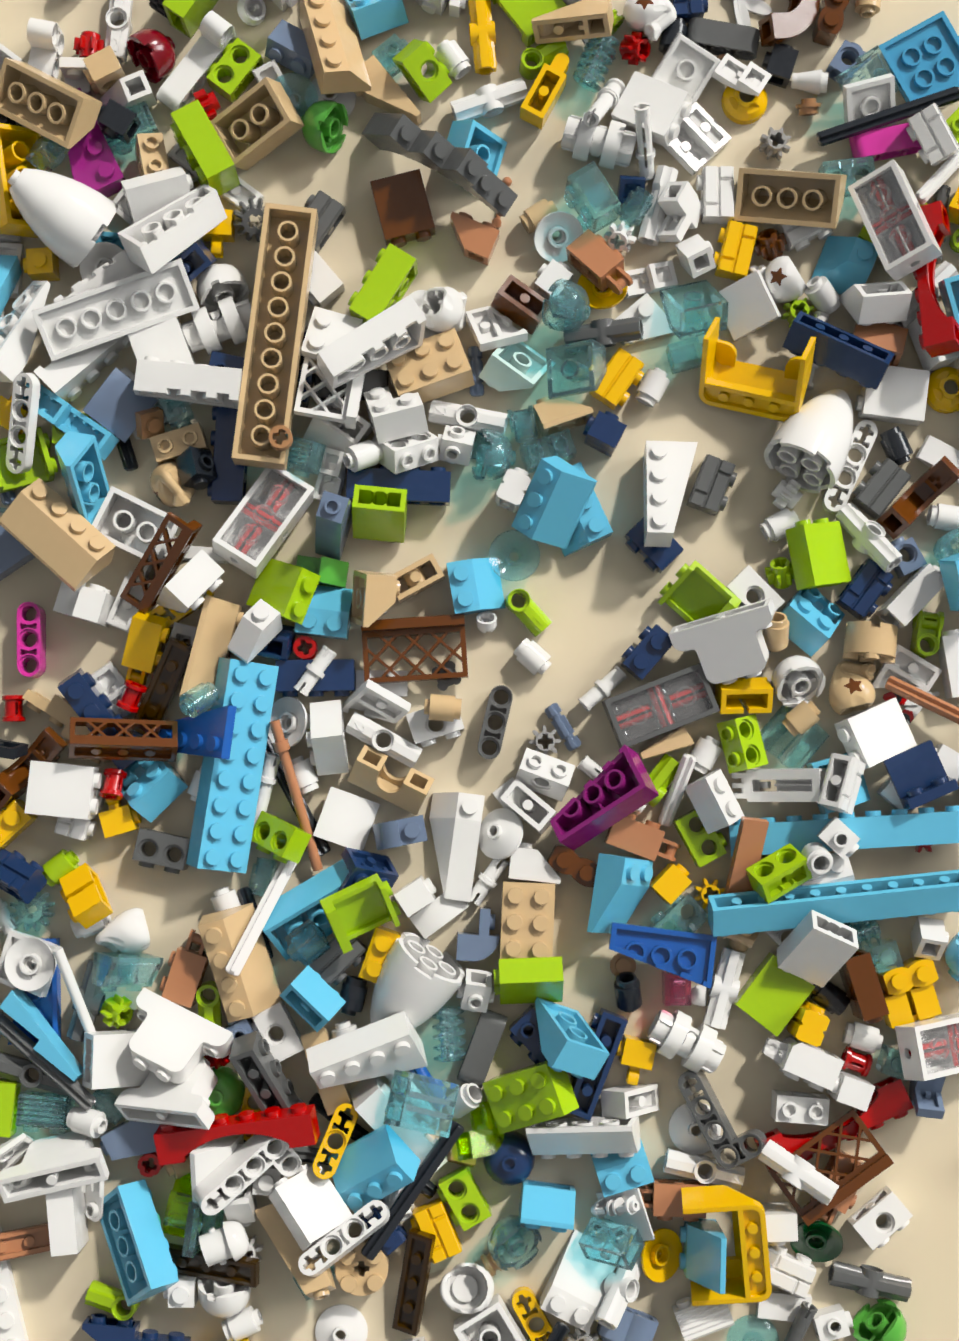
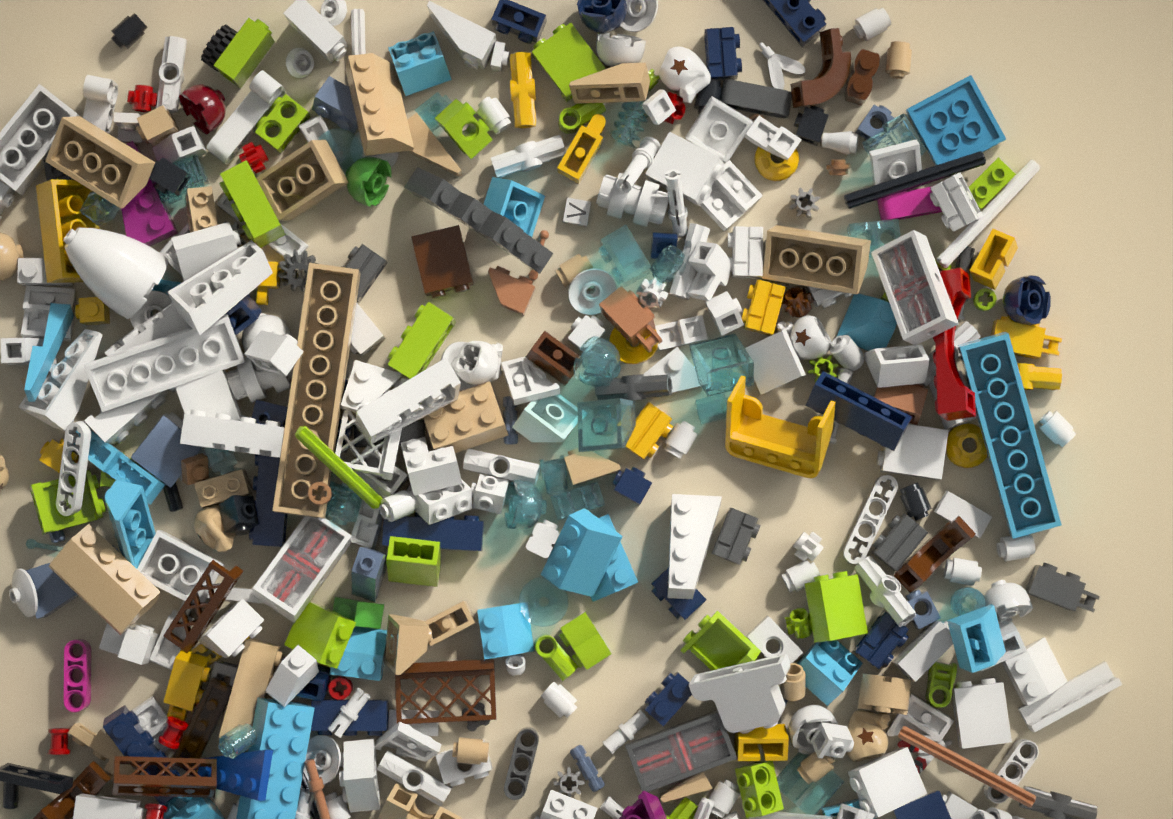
camera: 10 degrees right, 0 degrees up
(230, 294) = (274, 352): none -> white brick
(299, 411) = (338, 467): none -> lime axle
(540, 158) = (577, 212): none -> white tile
(558, 595) = (585, 641): none -> lime brick
(624, 42) = (658, 107): none -> white tile
(814, 442) = (836, 496): white cylinder -> none
(823, 693) = (832, 740): none -> white brick

